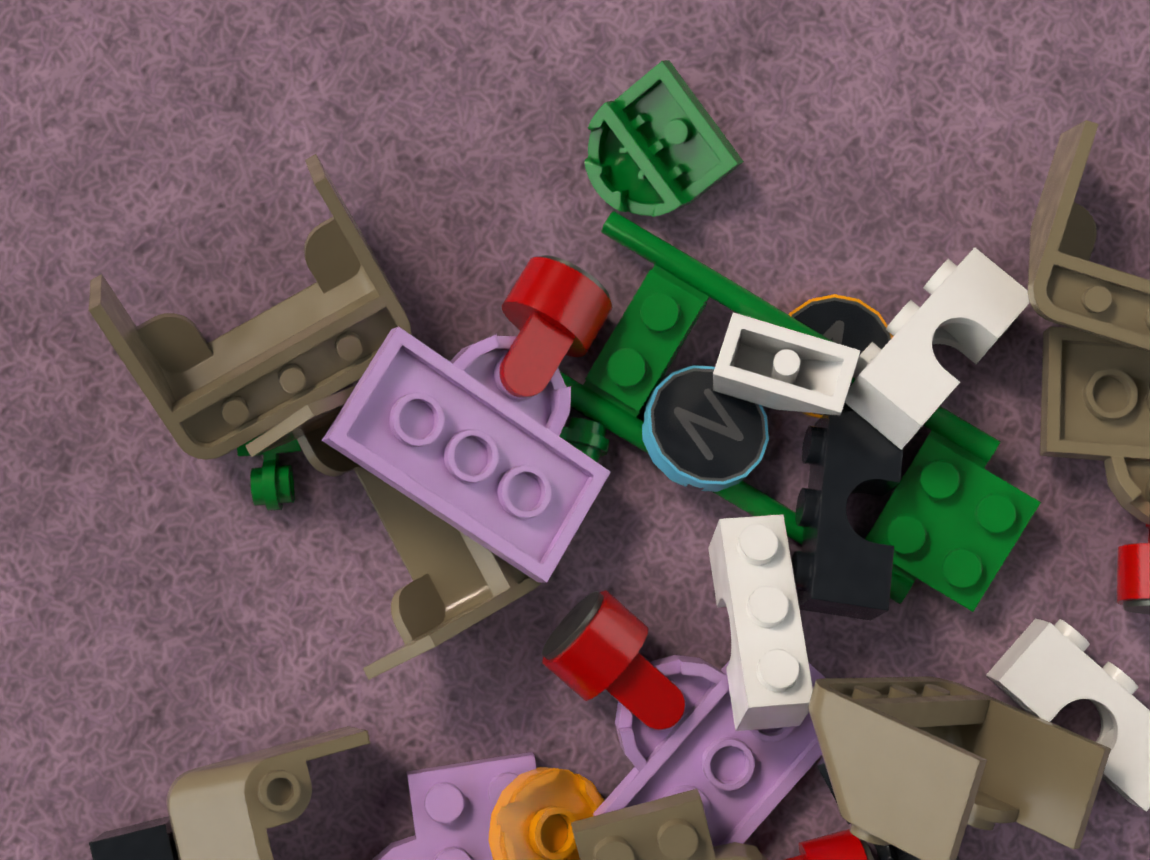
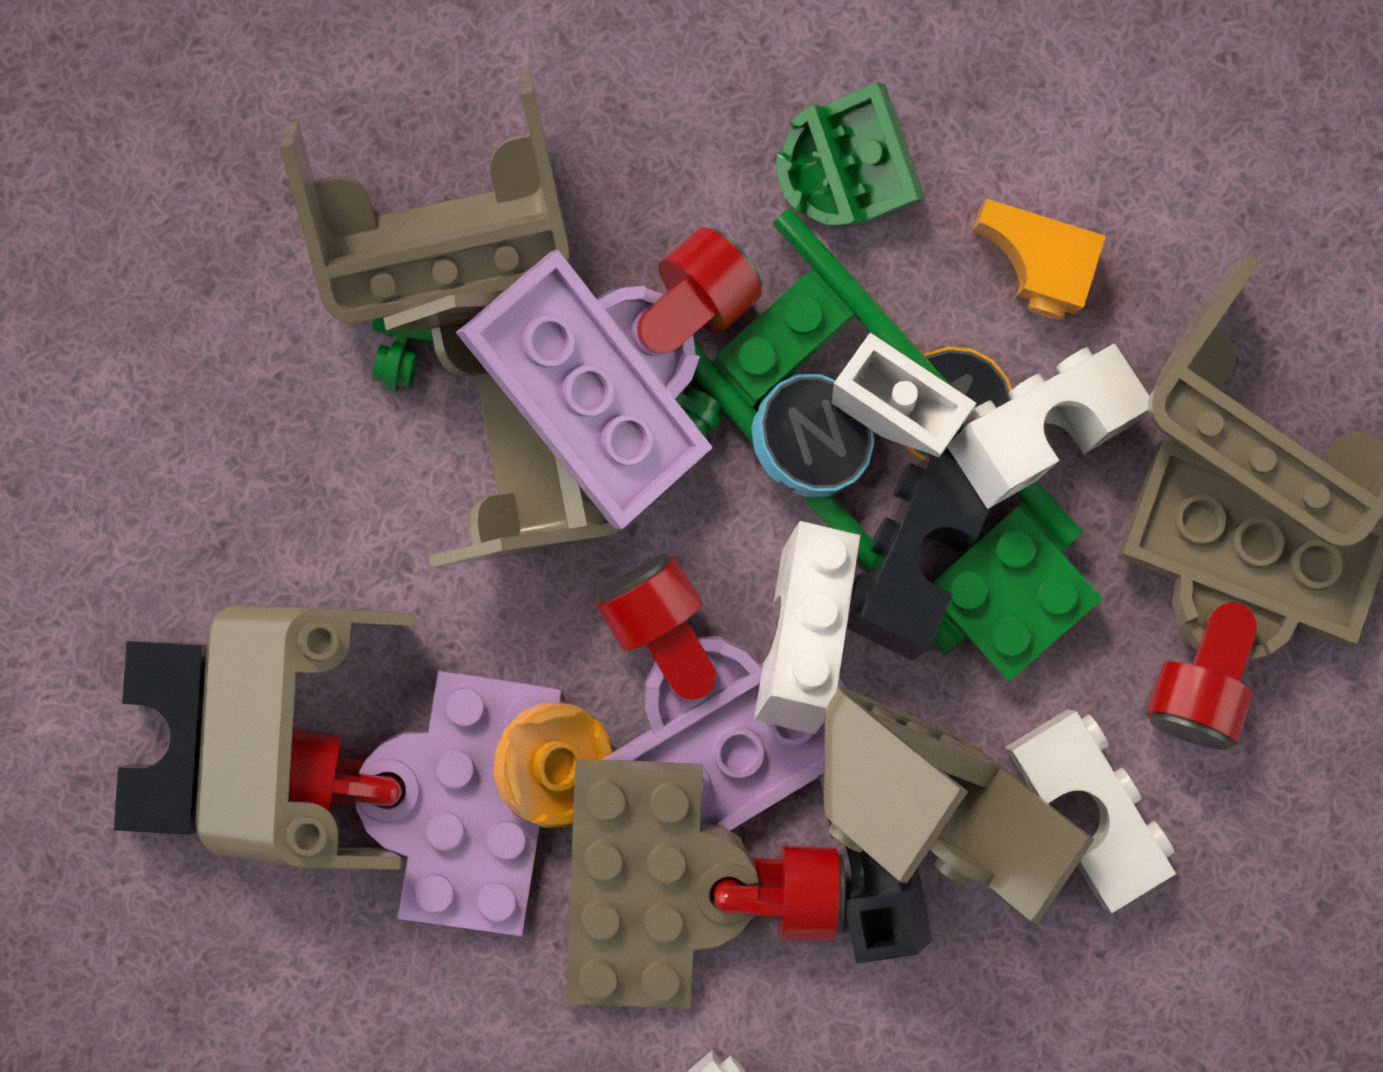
camera: 15 degrees right, 0 degrees up
(882, 181) = (1049, 256): none -> light orange arch

